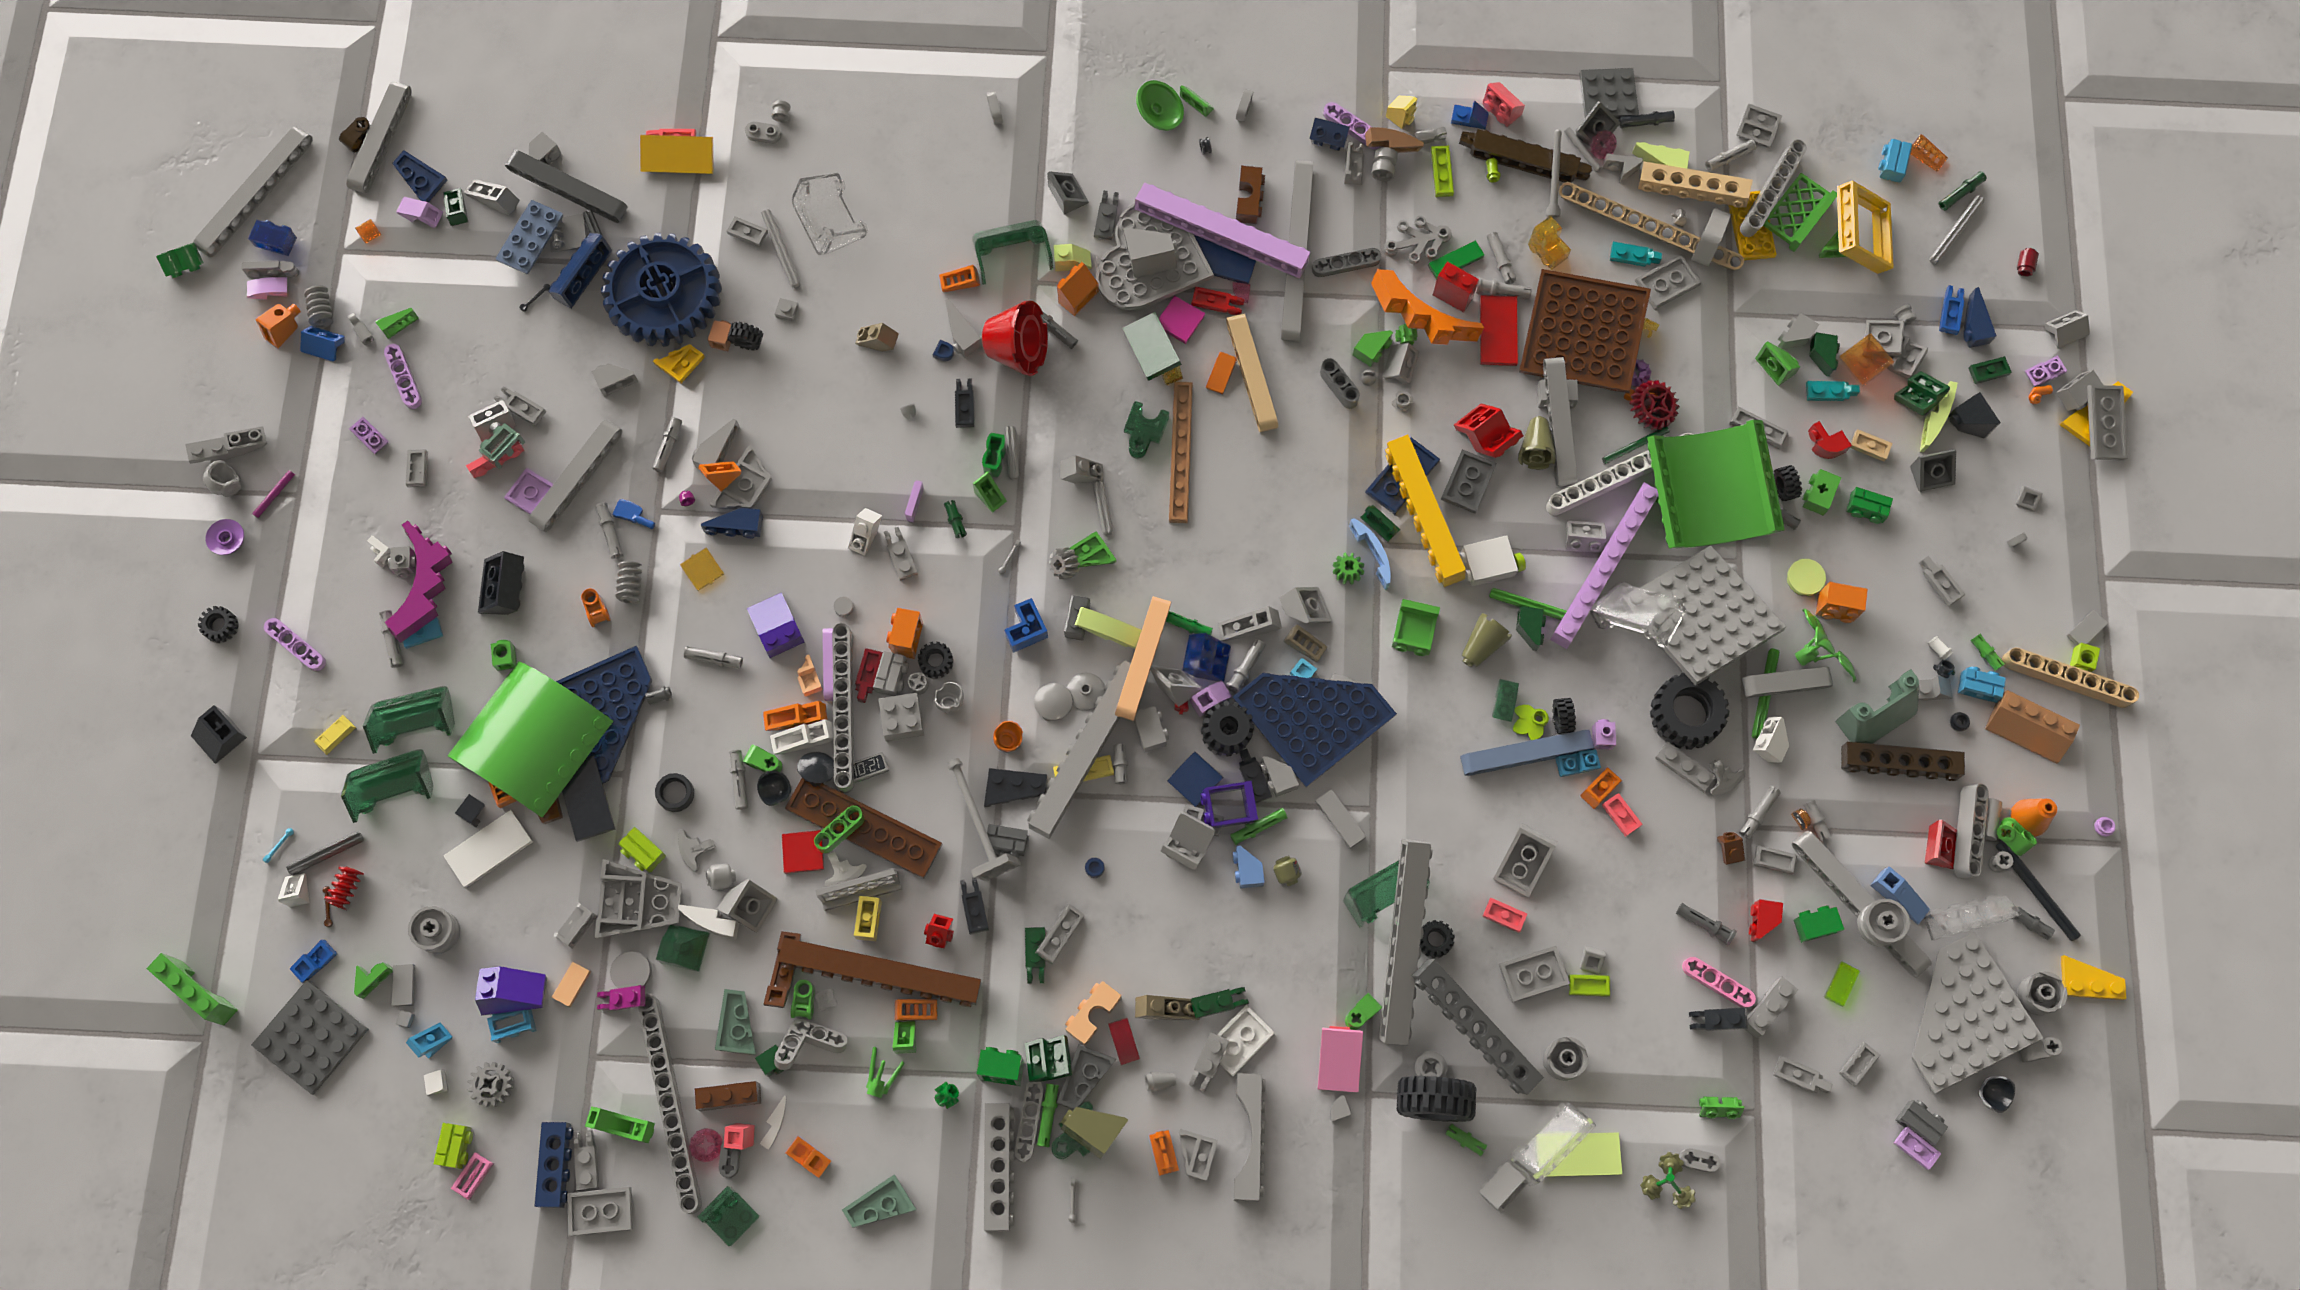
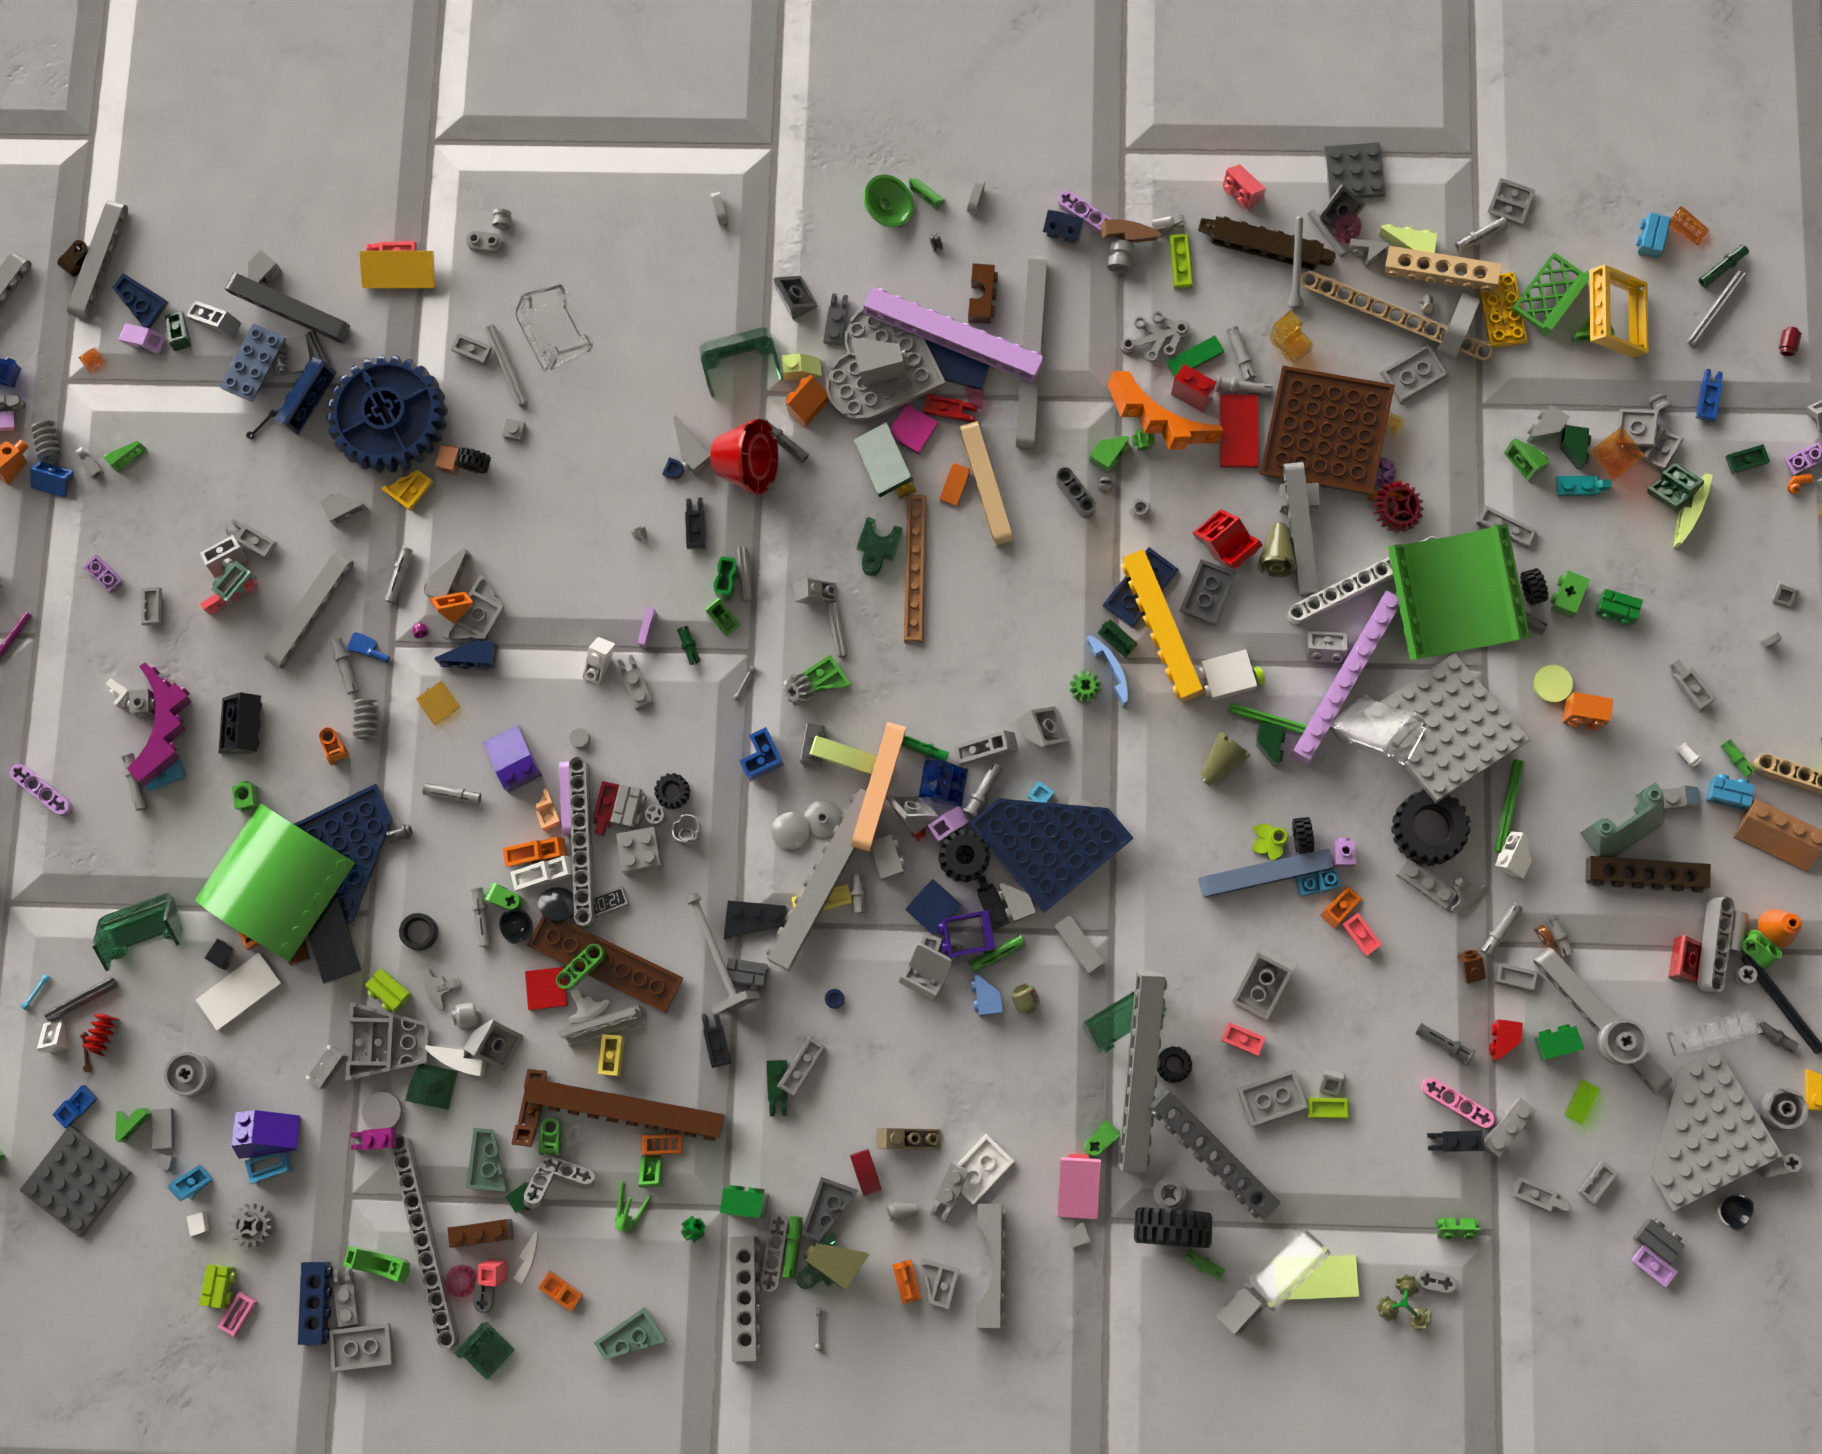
camera: 10 degrees right, 5 degrees up
(334, 734) = (84, 880): light yellow tile -> none
(402, 376) = (130, 512): lavender beam -> none
(408, 714) = (154, 858): clear green windscreen -> none
(528, 491) = (263, 626): lavender tile -> none
(571, 984) = (325, 1125): light nougat tile -> none
(877, 337) = (605, 457): dark tan slope -> none
(905, 632) = (641, 765): orange brick -> none
(939, 931) = (681, 1066): red brick -> none
(965, 271) = (689, 398): orange slope -> none
(1008, 736) = (745, 868): orange hair -> none
(1048, 1059) = (791, 1191): dark green slope -> none
(1102, 997) = (822, 1158): light nougat arch -> none
(1217, 1002) = (957, 1132): dark green hinge -> none
(1302, 648) = (1040, 755): dark tan slope -> none
(1347, 265) = (1081, 360): dark grey beam -> none
(1354, 164) = (1090, 257): light grey hinge -> none
(1401, 363) = (1138, 468): light grey panel -> none
(1402, 110) = (1138, 198): light yellow slope -> none
(1415, 627) = (1153, 746): bright green panel -> none
(1470, 116) = (1210, 201): blue slope -> none
(1492, 168) = (1233, 259): lime pin -> none
(1505, 700) = (1244, 819): clear green slope -> none
(1576, 1058) = (1314, 1182): light grey brick -> none
(1632, 446) = (1379, 548): dark green bar -> none
(1634, 254) = (1379, 345): teal hinge -> none
(1647, 119) = (1393, 198): black pin -> none
(1773, 188) = (1525, 263): light grey beam -> none
(1787, 682) = (1530, 795): light grey beam -> none
(1810, 652) = (1565, 756): bright green plant -> none
(1828, 446) = (1576, 545): red brick -> none
(1870, 445) = (1621, 543): tan plate -> none
(1896, 888) = (1642, 1011): medium blue slope -> none
(1935, 470) = (1687, 568): dark grey slope -> none
(1944, 668) = (1693, 776): black plate -> none
(1963, 718) = (1712, 828): black plate -> none
(1974, 417) = (1729, 511): black slope -> none
(1978, 325) = (1736, 411): dark blue slope -> none

